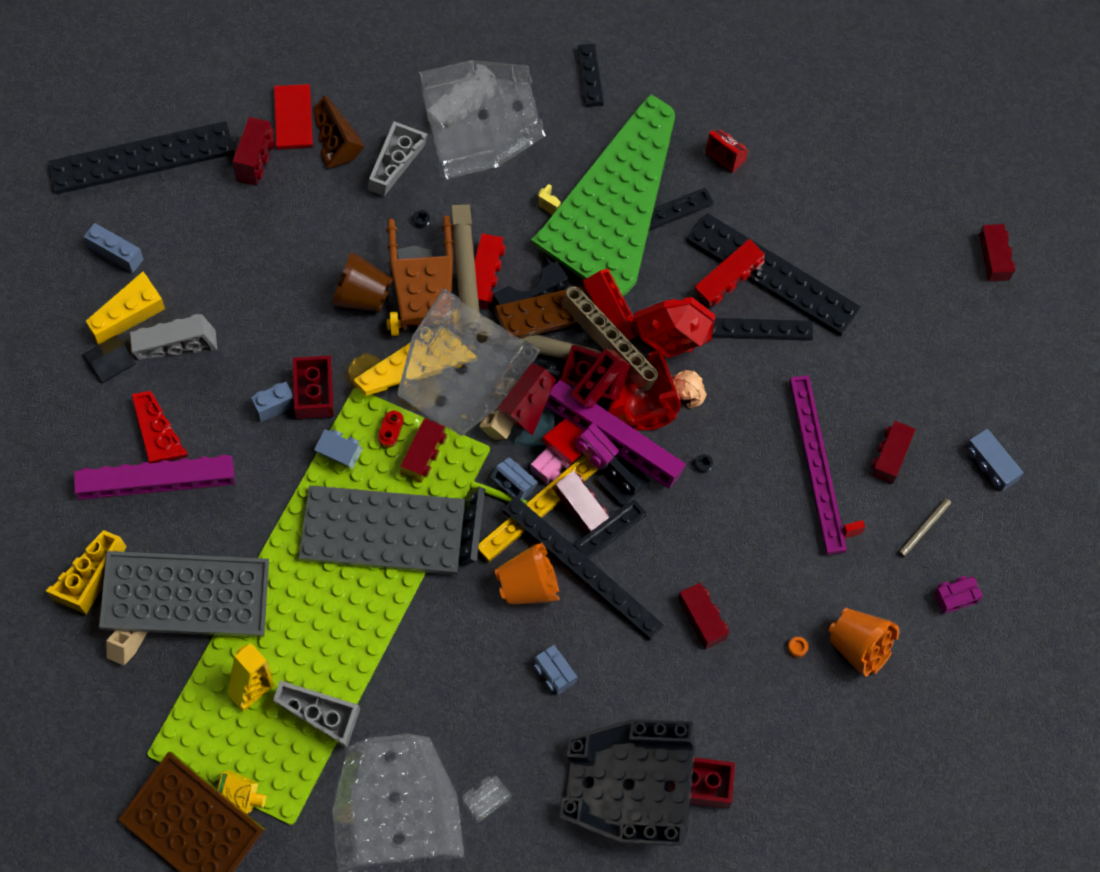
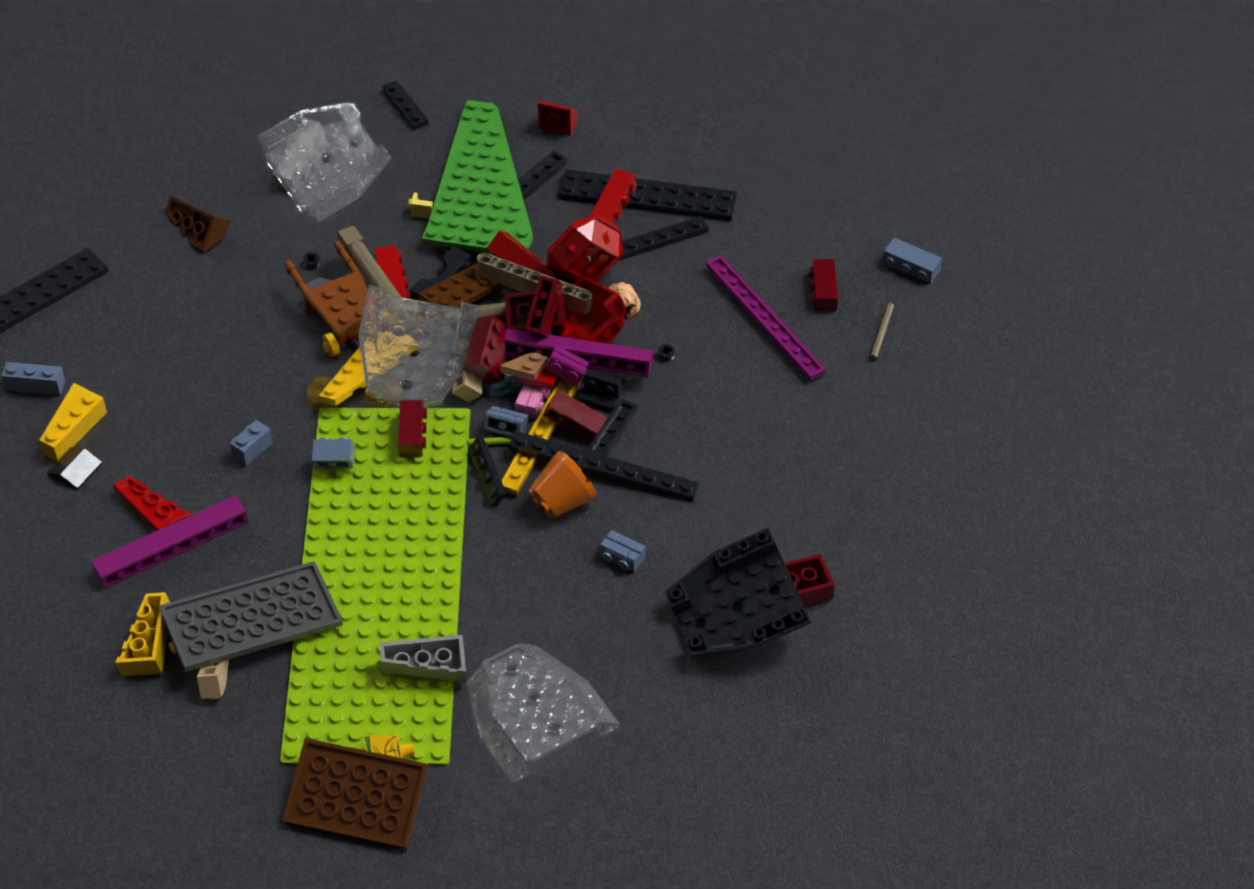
camera: 20 degrees left, 15 degrees down
(173, 338) = (130, 426): light grey wedge -> none
(249, 677) = (350, 648): yellow wedge -> none
(253, 151) = (128, 259): dark red brick -> none
(293, 116) = (149, 224): red tile -> none
(313, 387) = (283, 416): dark red brick -> none
(361, 285) = (285, 323): reddish brown cone -> none
(382, 530) = (406, 503): dark grey plate -> none
(391, 427) = (372, 424): red plate -> none
(396, 155) = (263, 218): light grey wedge -> none
(486, 798) = (615, 671): clear brick -> none
(557, 430) = (526, 366): none -> medium nougat wing
(703, 615) = (729, 462): dark red brick -> none
(797, 647) = (824, 457): orange tile -> none
(853, 529) = (823, 351): red tile -> none
(863, 640) = (878, 424): orange cone -> none
(958, 594) = (937, 367): magenta brick -> none
(996, 252) = (829, 113): dark red brick -> none

